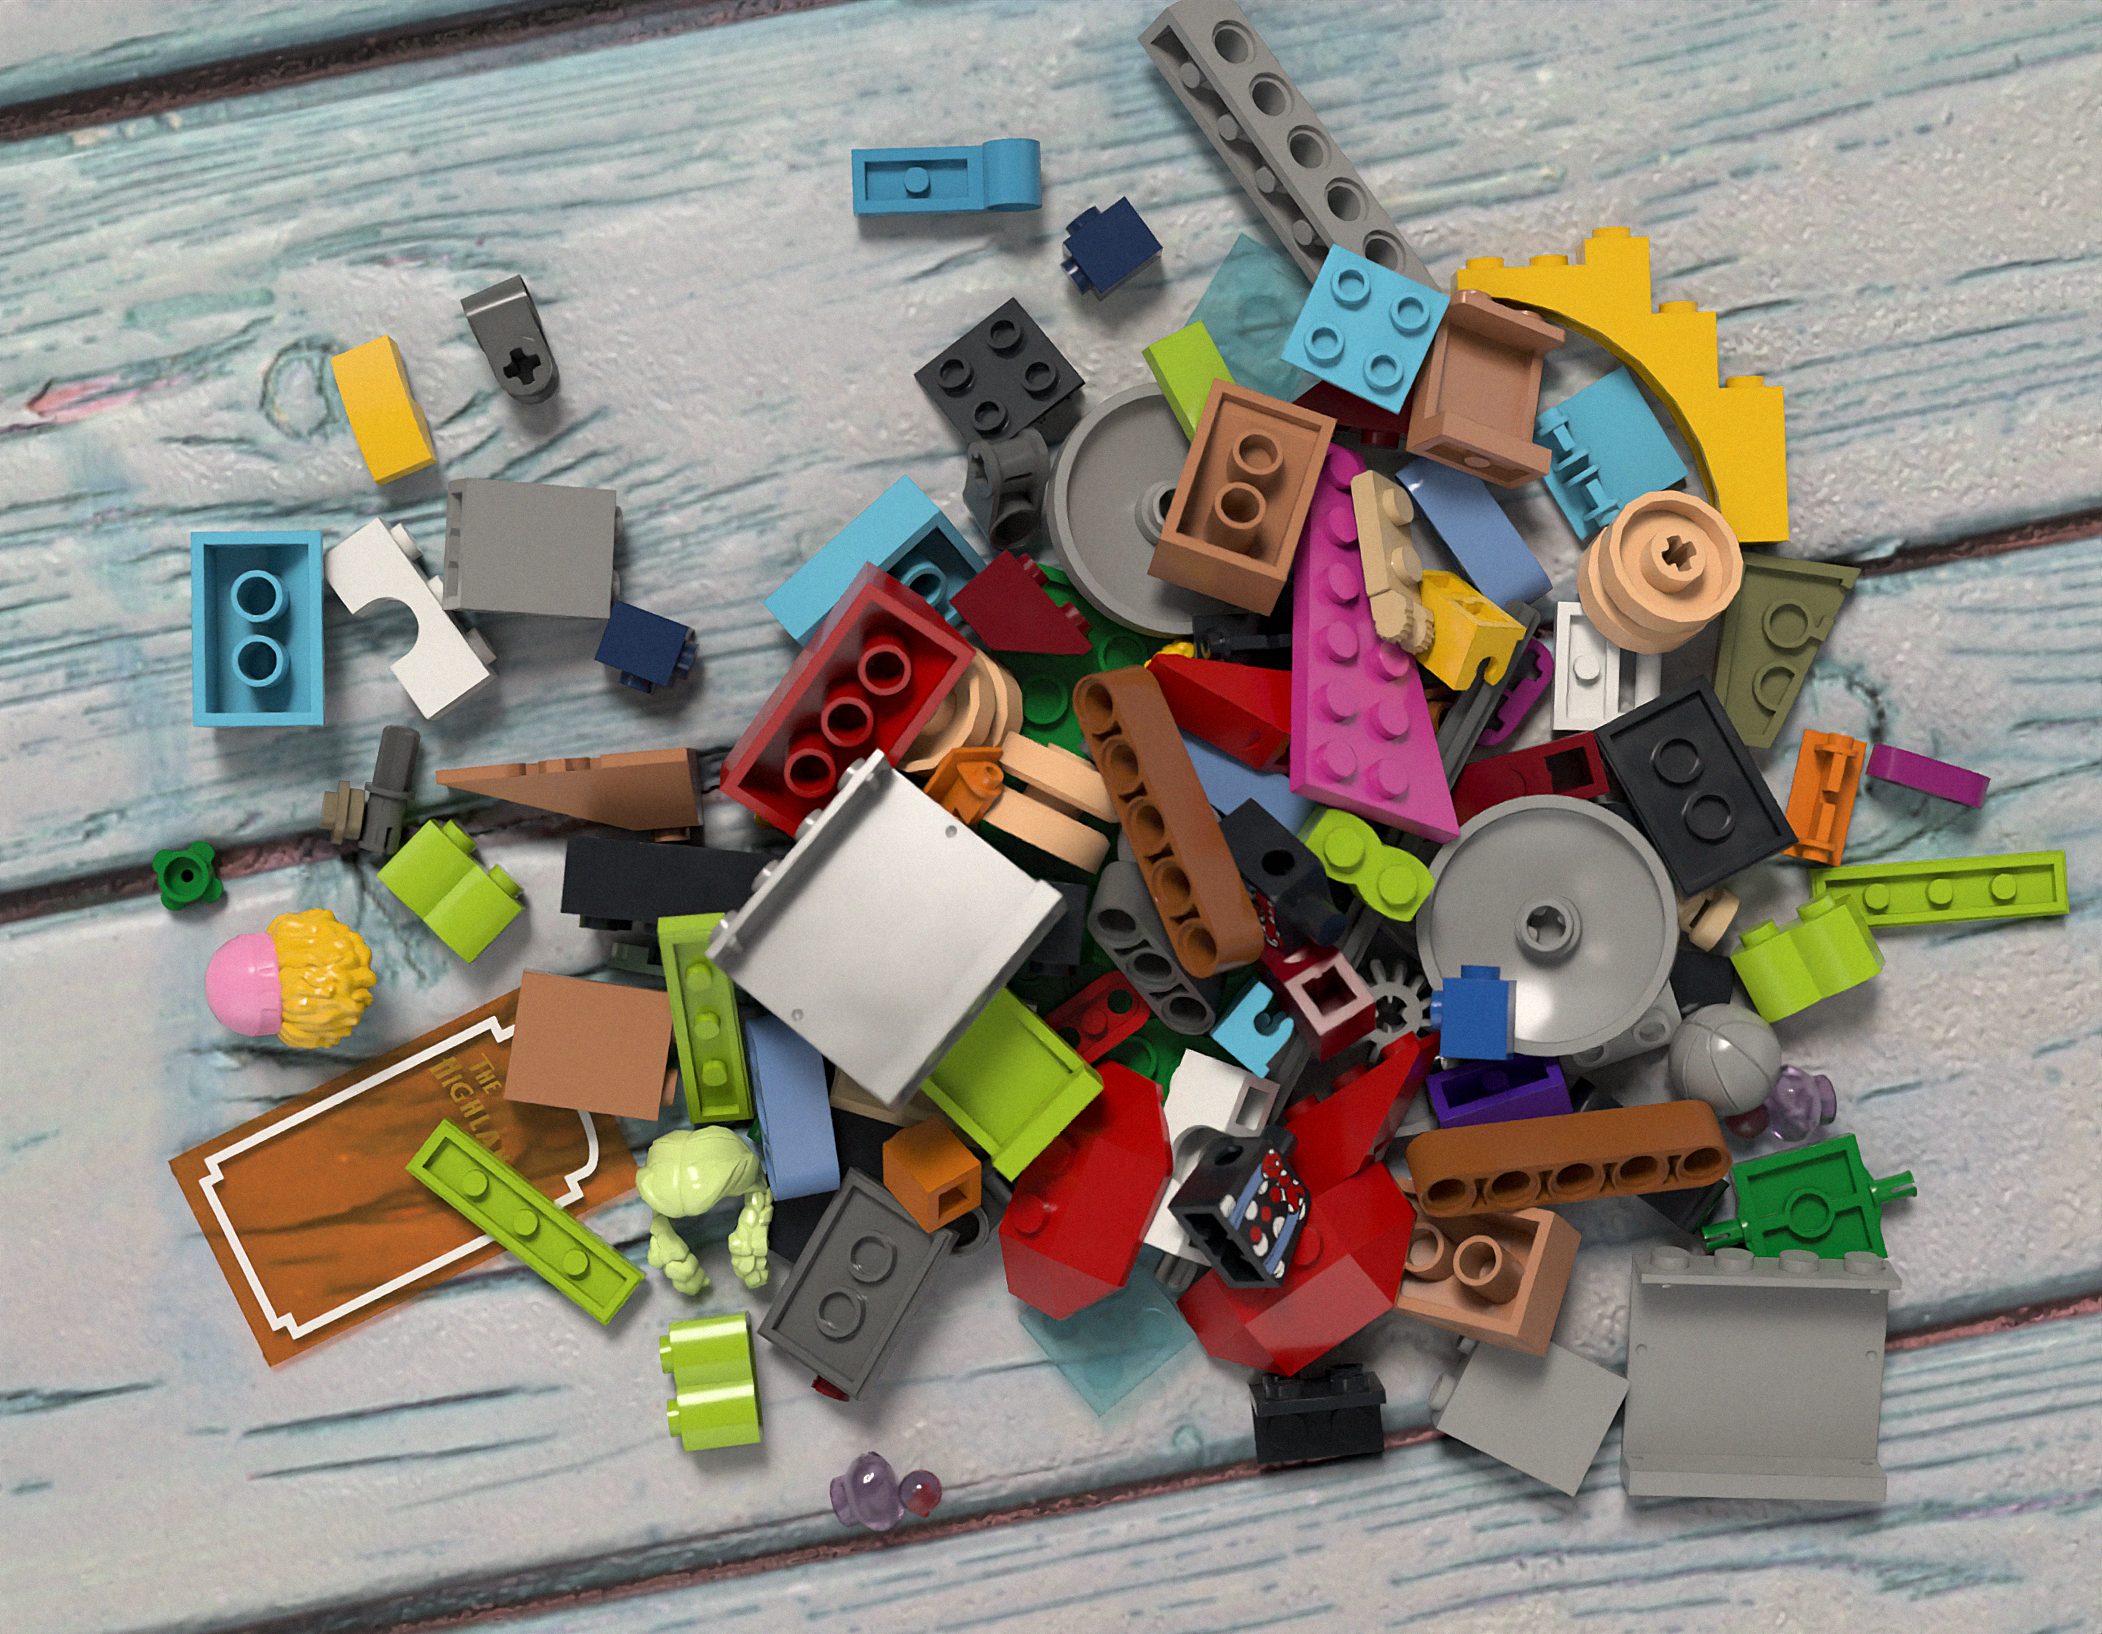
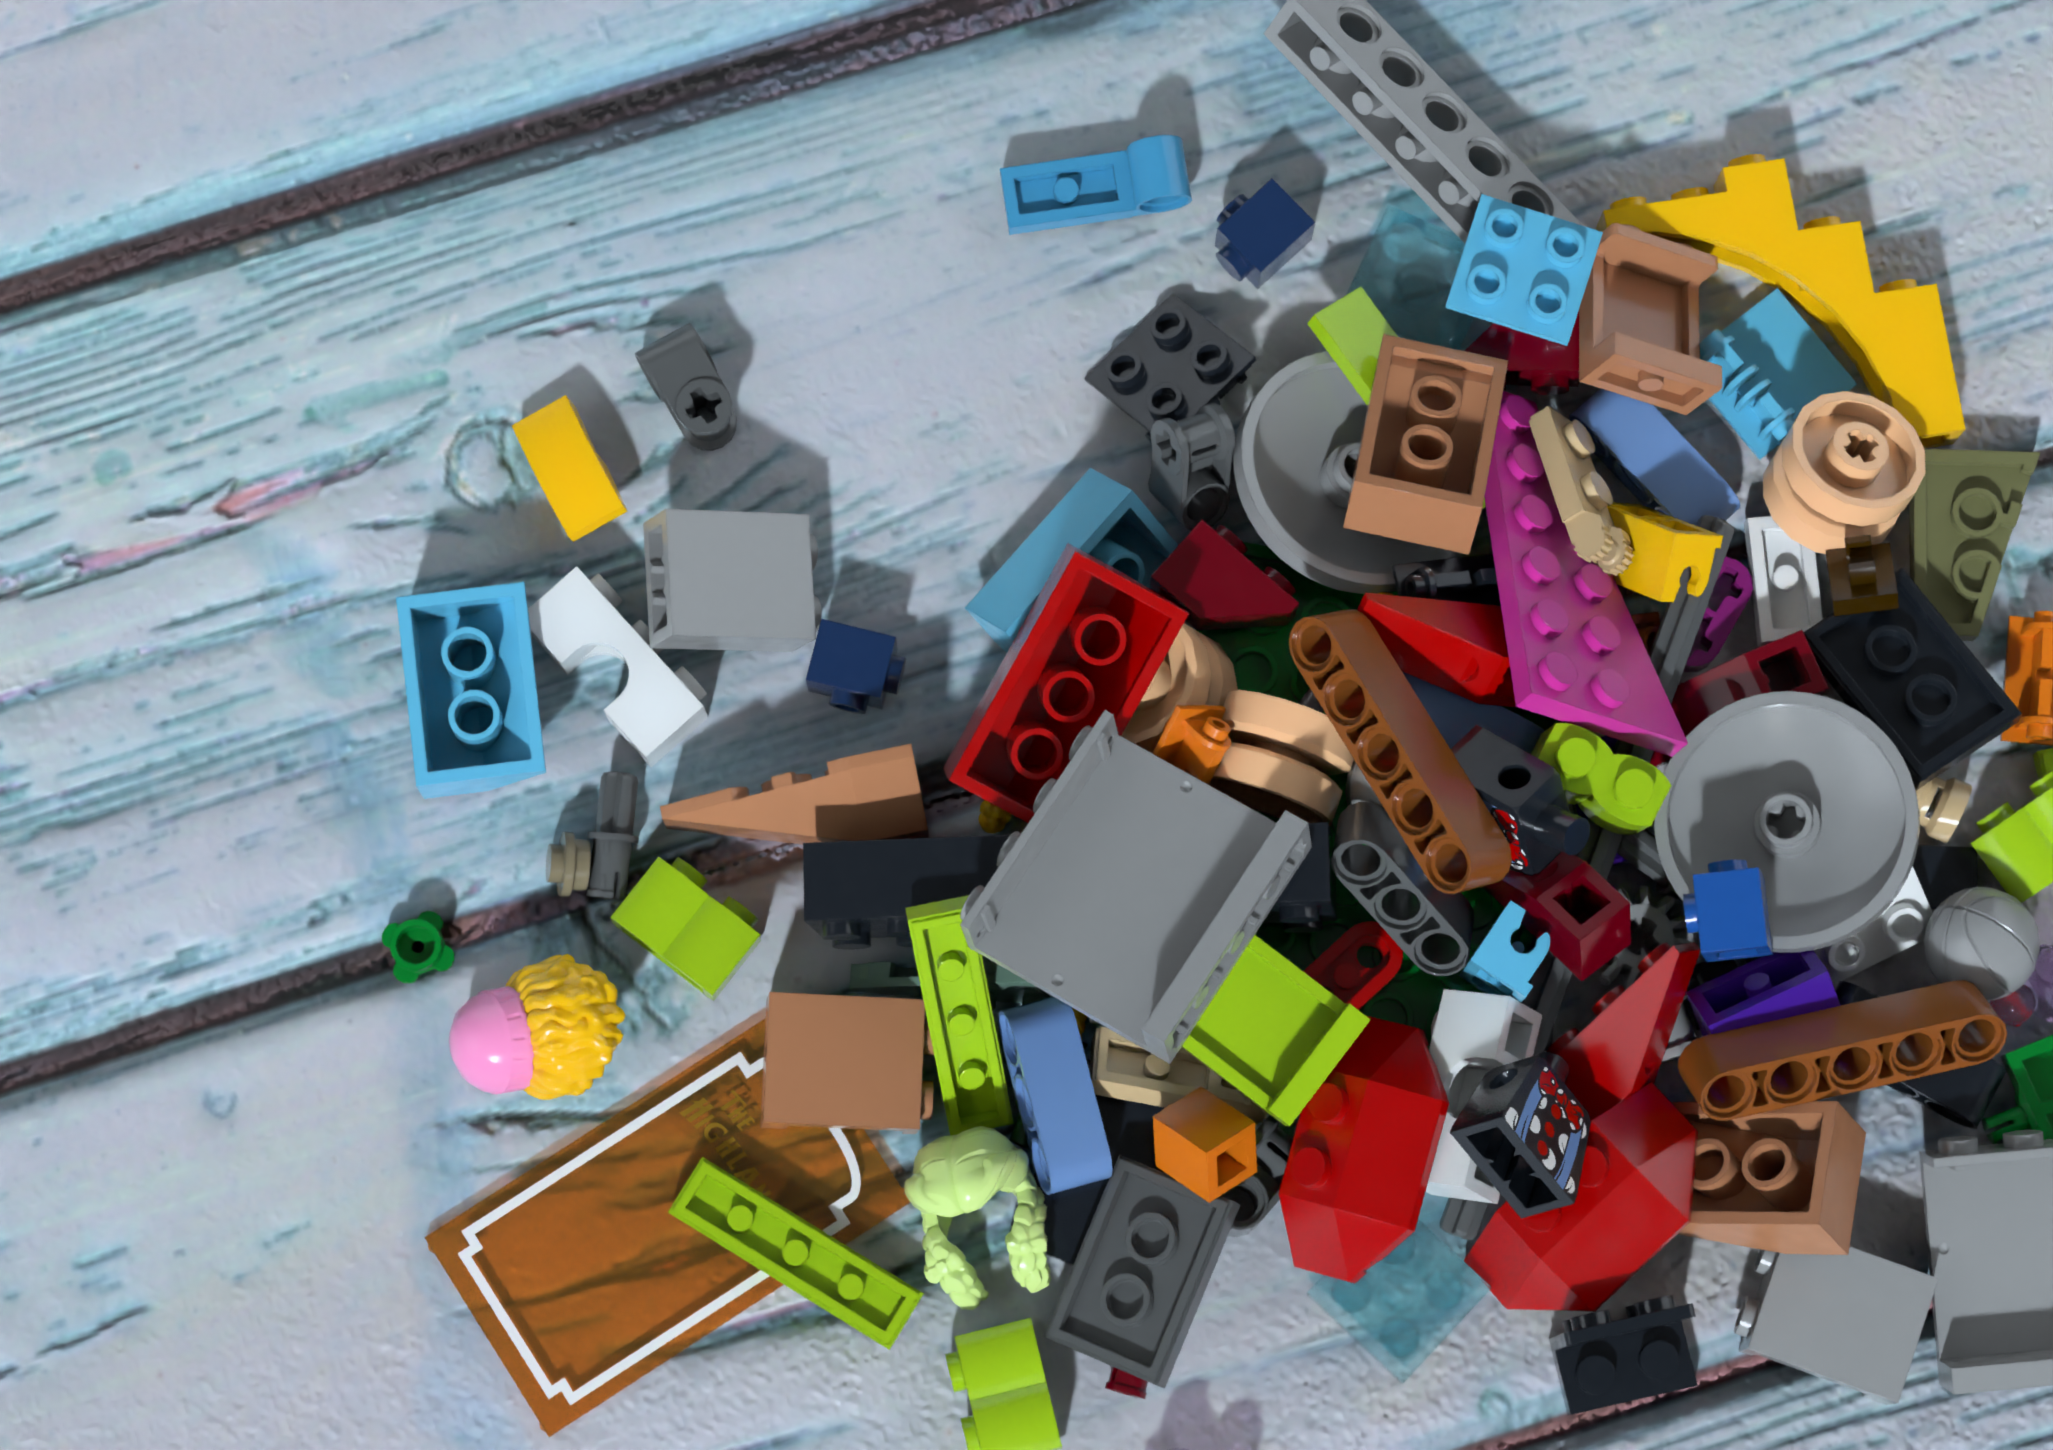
camera: 10 degrees left, 10 degrees down
(1661, 681) = (1862, 577): none -> dark brown tile

